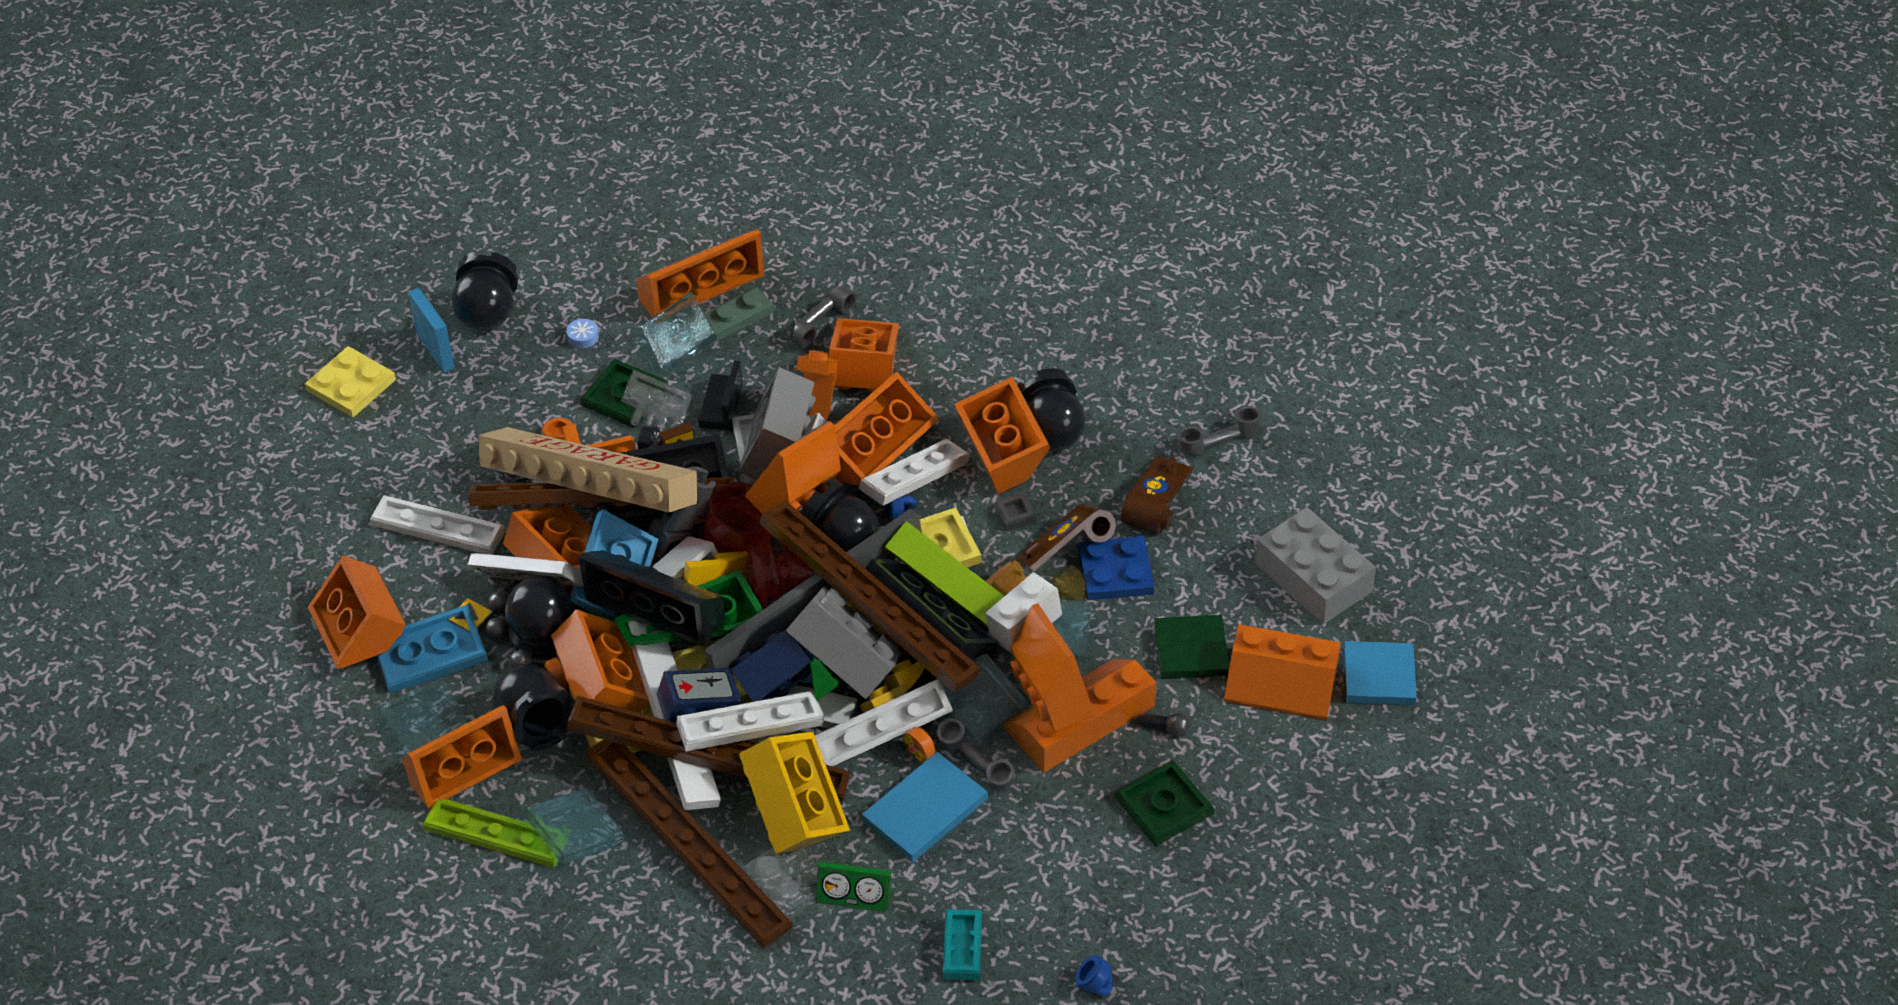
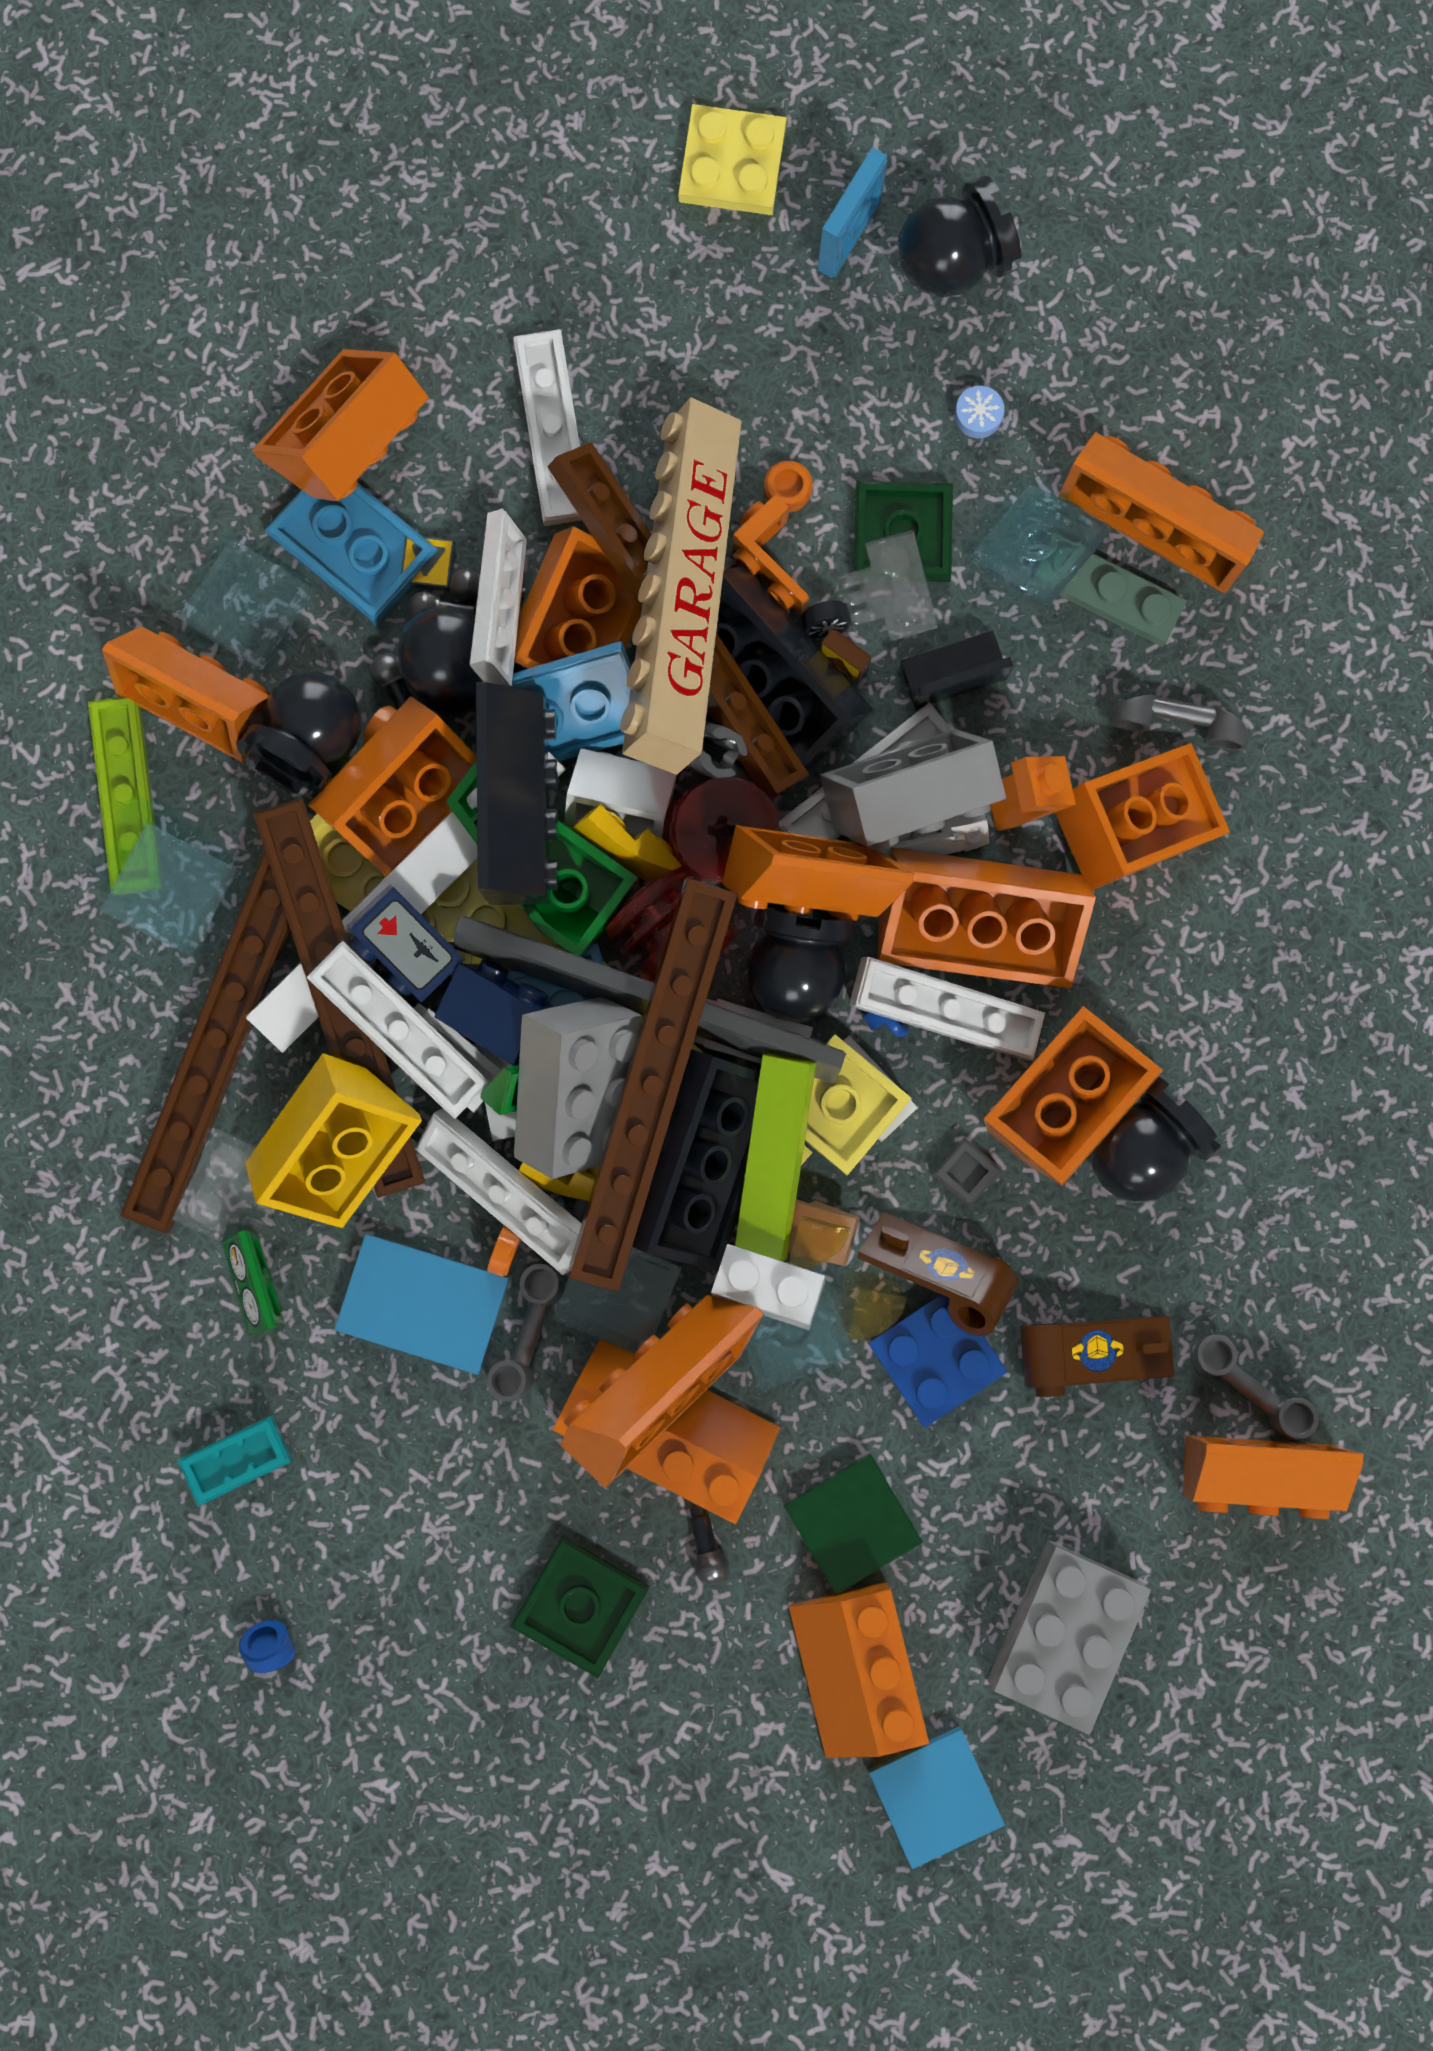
camera: 60 degrees right, 35 degrees up
(1271, 436) = (1269, 1475): none -> orange slope

